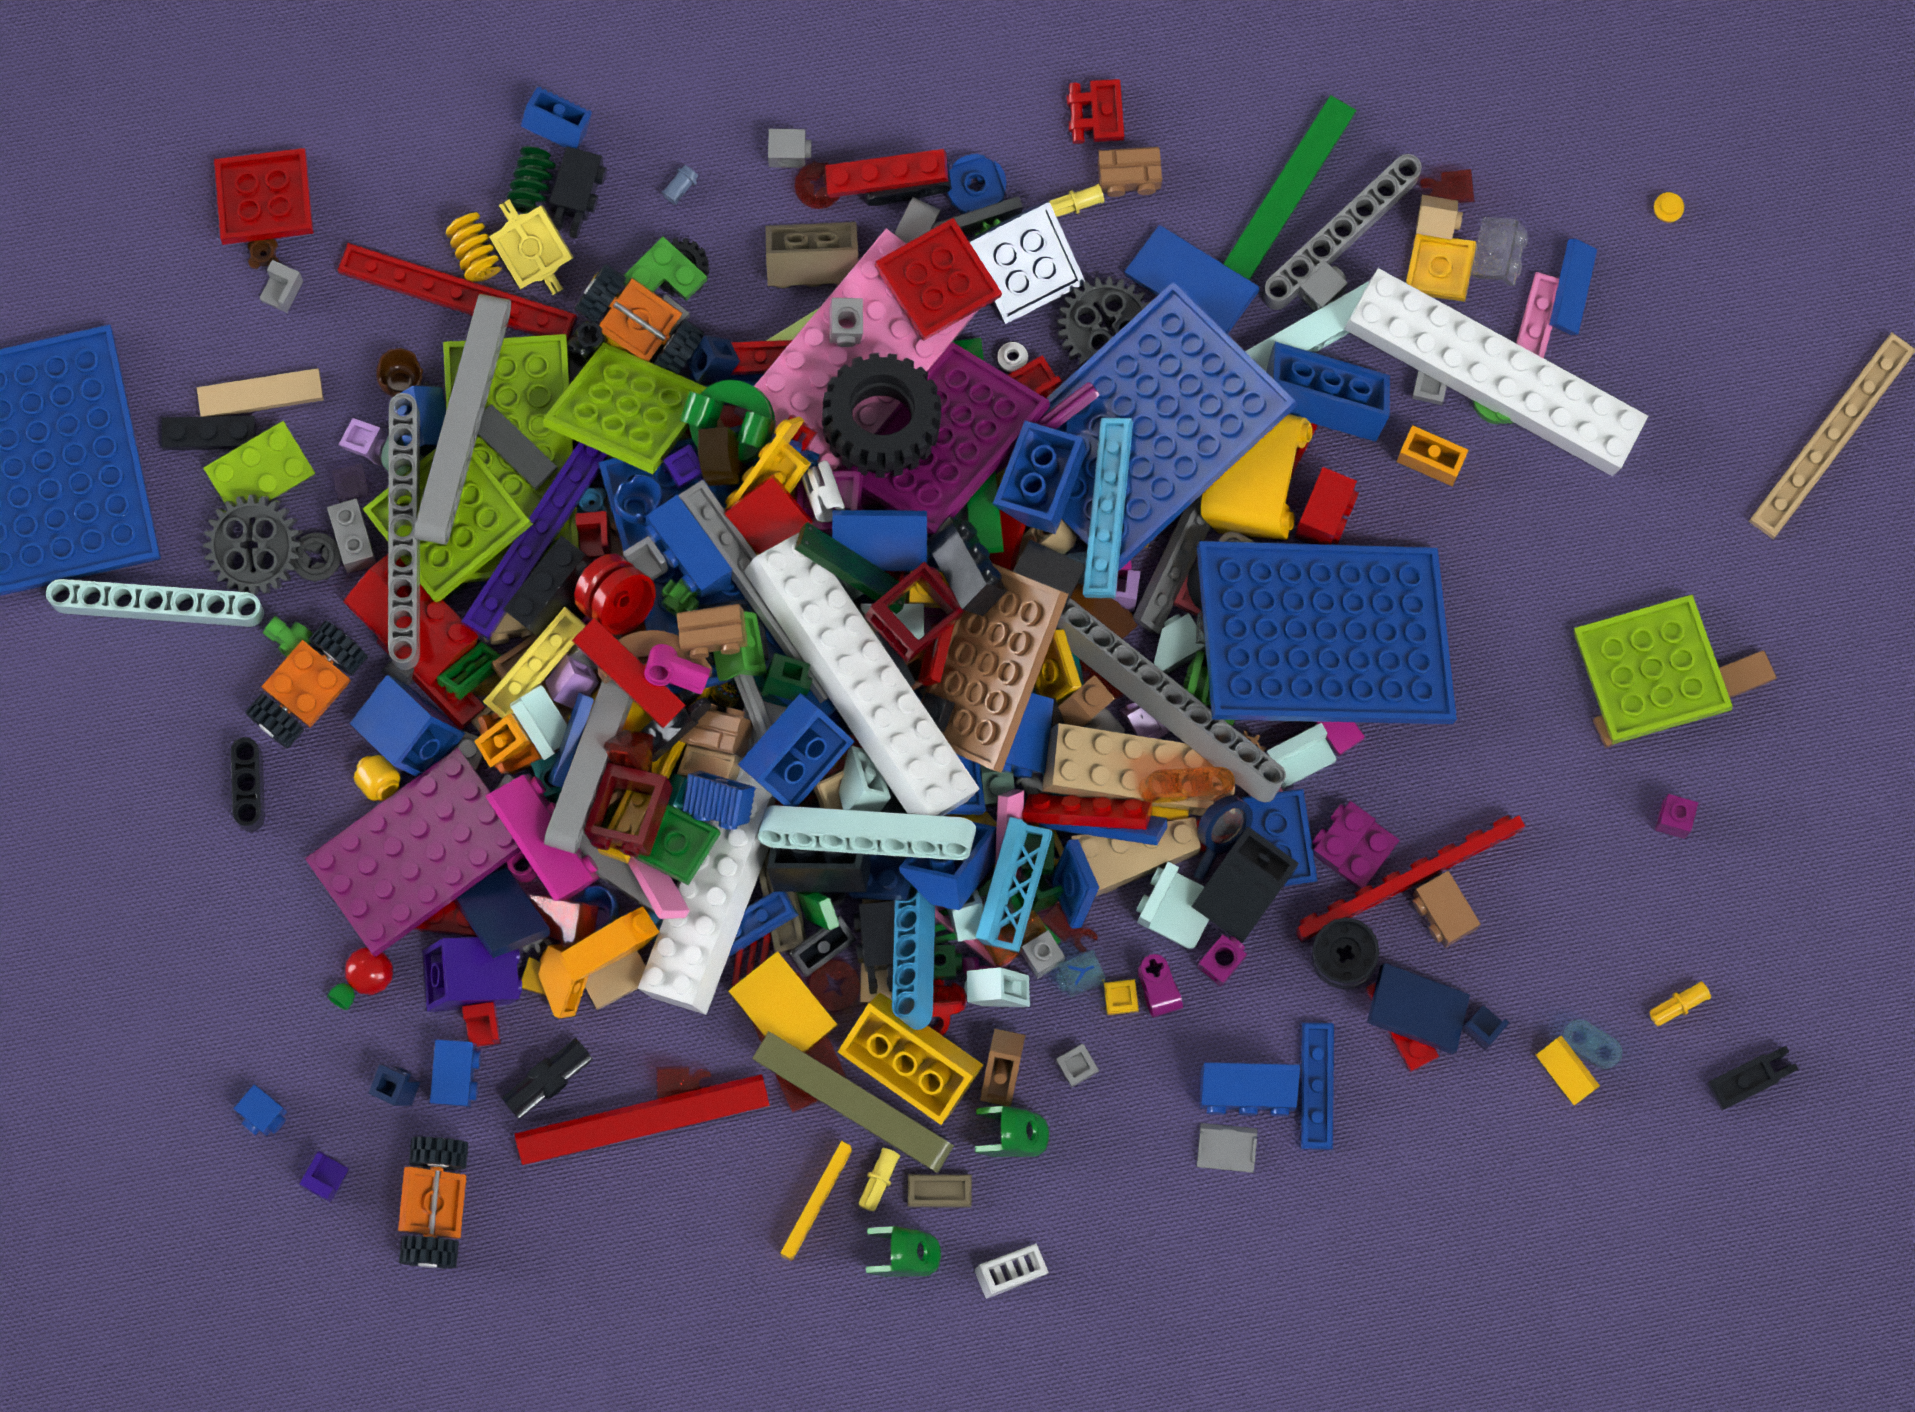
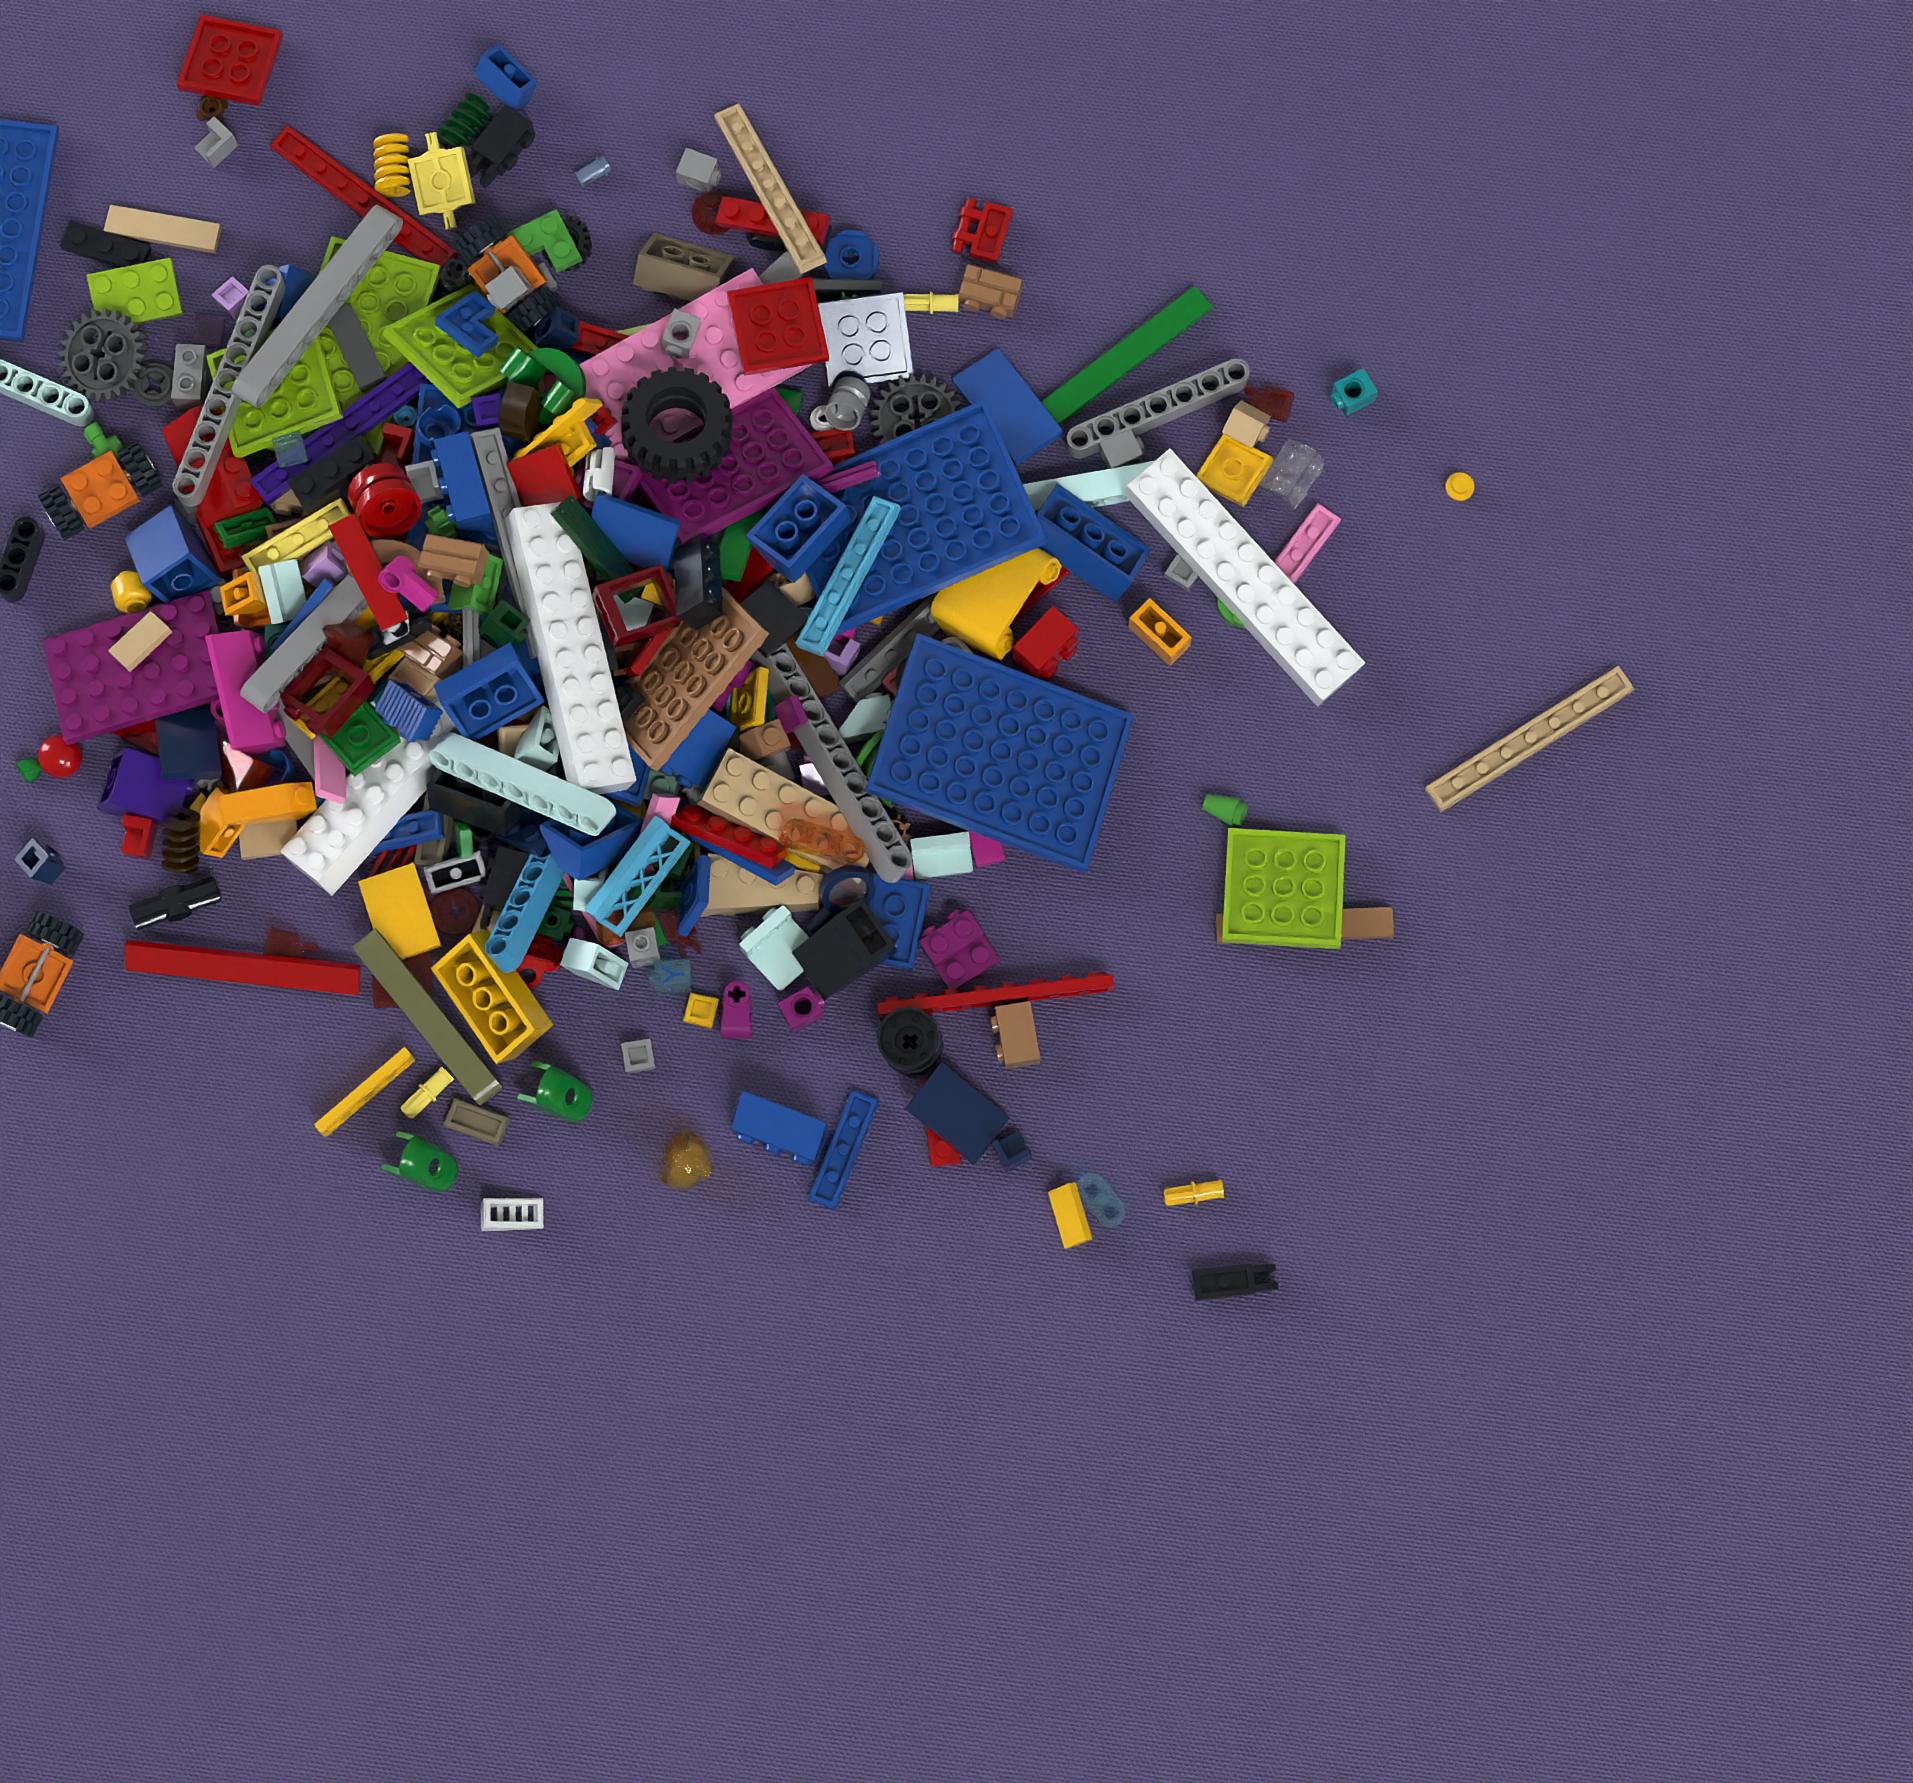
camera: 25 degrees right, 0 degrees up
(398, 371) = (286, 247): reddish brown hair -> none
(411, 824) = (140, 641): none -> tan tile
(454, 1073) = (96, 869): blue brick -> none
(491, 575) = (289, 449): none -> clear light blue tile
(532, 1013) = (181, 841): none -> dark brown piece
(620, 387) = (465, 326): none -> blue plate
(649, 334) = (508, 288): none -> light grey brick
(873, 141) = (770, 188): none -> tan tile
(1002, 1067) = (572, 1033): medium nougat slope -> none
(1032, 333) = (847, 403): none -> light grey wheel
(1106, 667) = (791, 714): none -> magenta tile
(1167, 1154) = (685, 1161): none -> clear yellow cylinder
(1227, 1147) = (743, 1175): light grey piece -> none
(1535, 138) = (1357, 381): none -> teal brick
(1563, 609) = (1226, 809): none -> bright green cone
(1573, 286) = (1345, 527): blue tile -> none
(1676, 816) = (1254, 1025): magenta brick -> none

